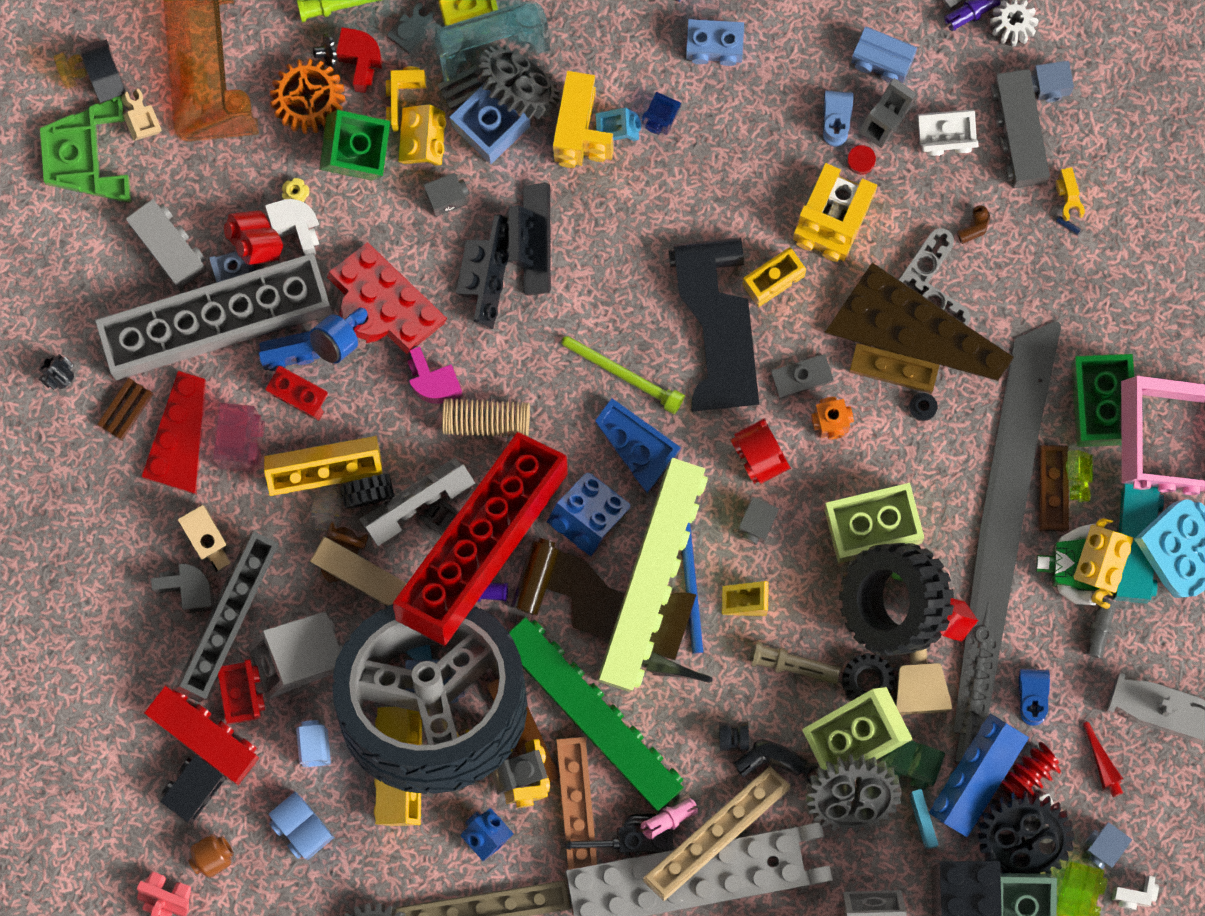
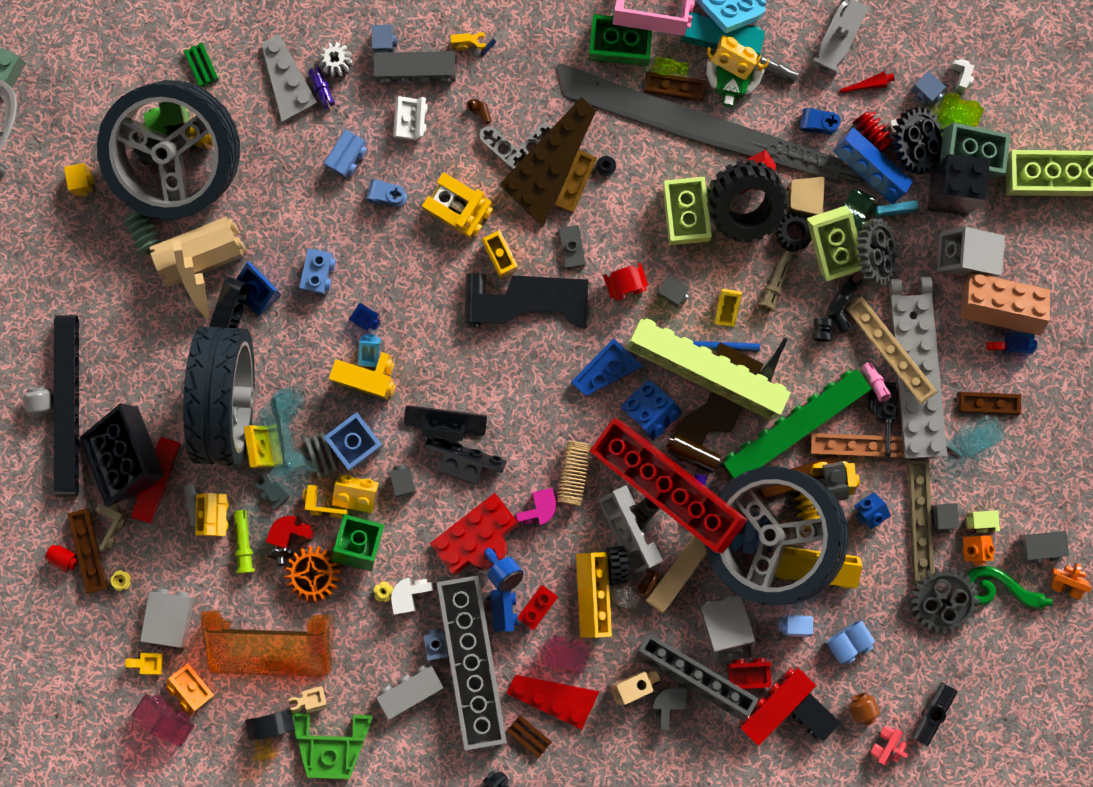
camera: 90 degrees left, 5 degrees up
(253, 237) = (416, 625): red brick -> none
(517, 81) = (316, 426): dark grey gear -> none
(669, 399) = (577, 340): lime piece -> none
(832, 428) = (607, 236): orange brick -> none
(861, 159) = (420, 182): red tile -> none
(888, 113) = (390, 157): dark grey brick -> none

